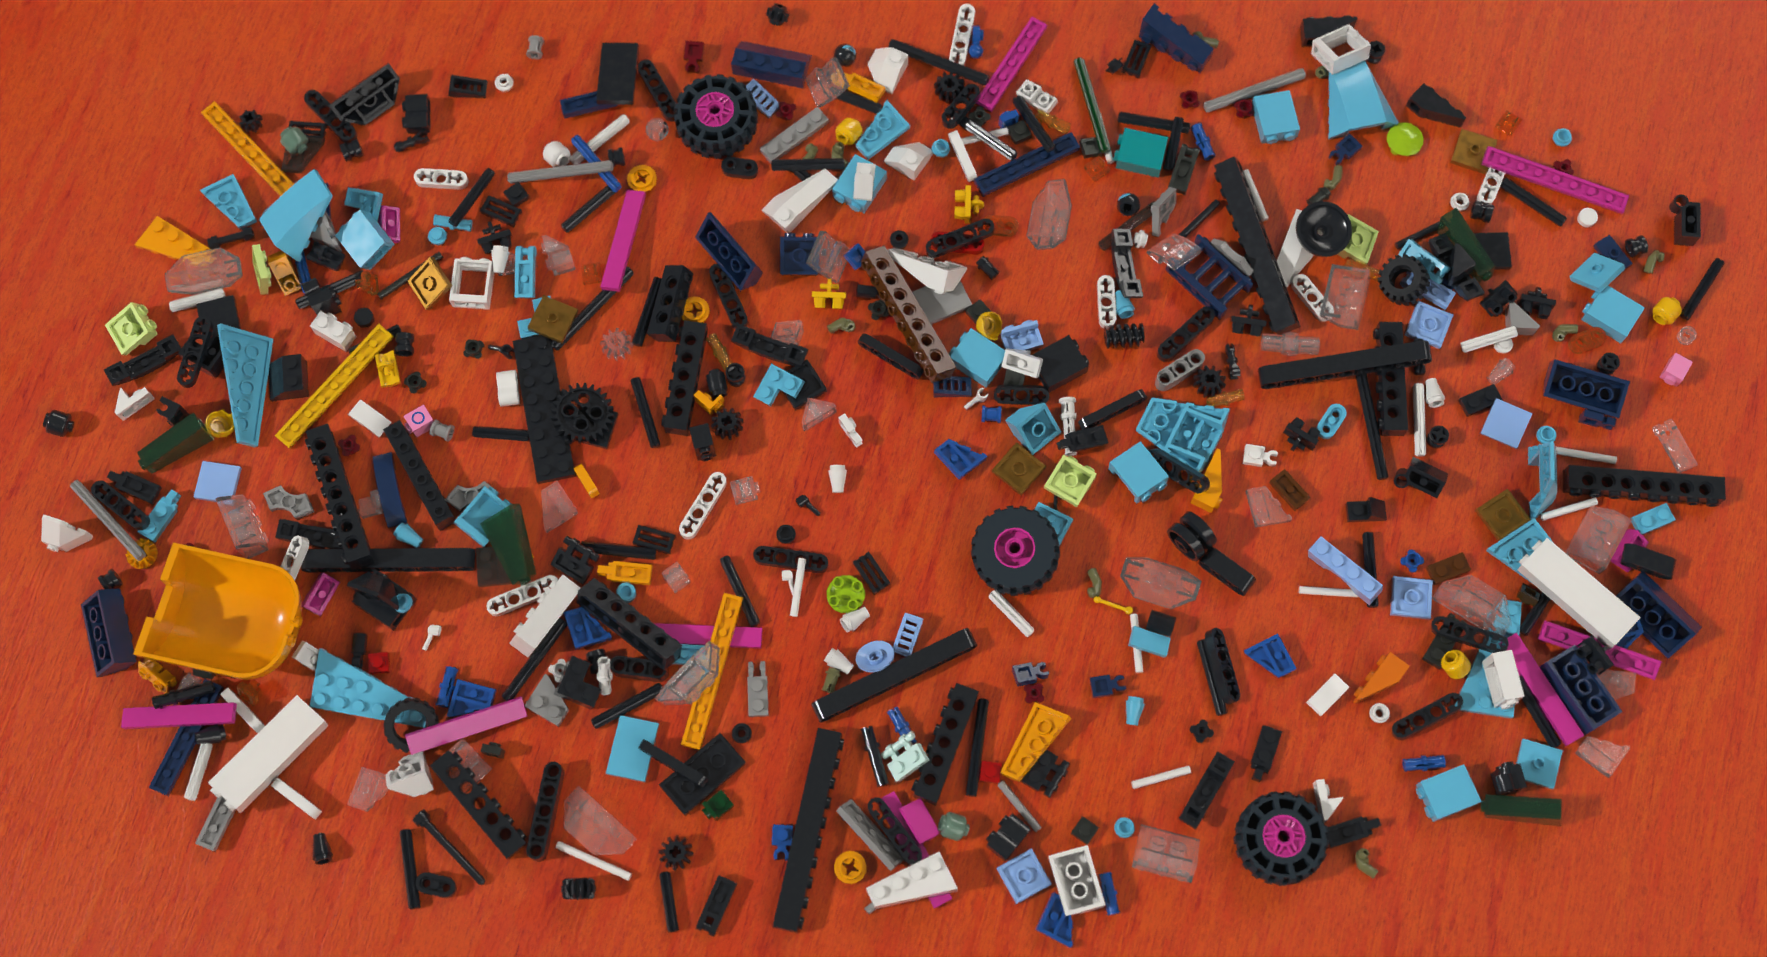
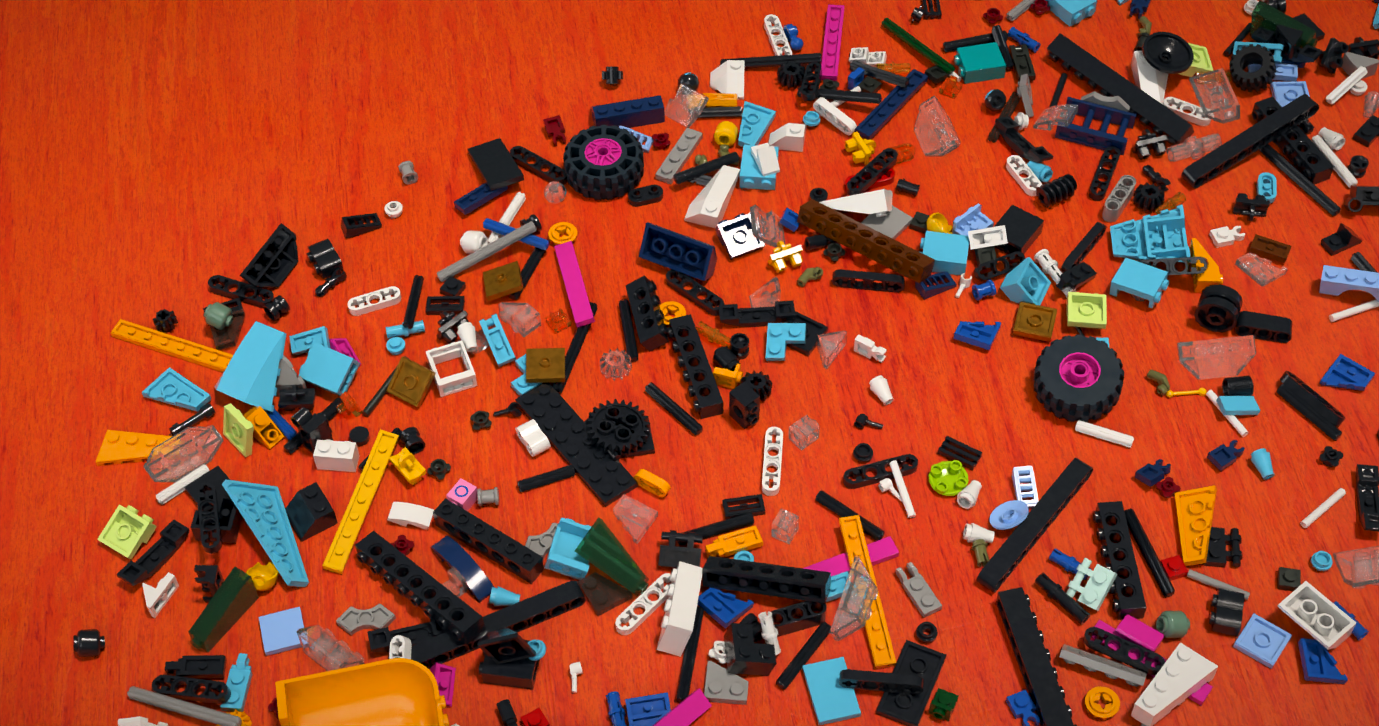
camera: 25 degrees left, 20 degrees down
(561, 209) = (503, 281): none -> pearl gold plate

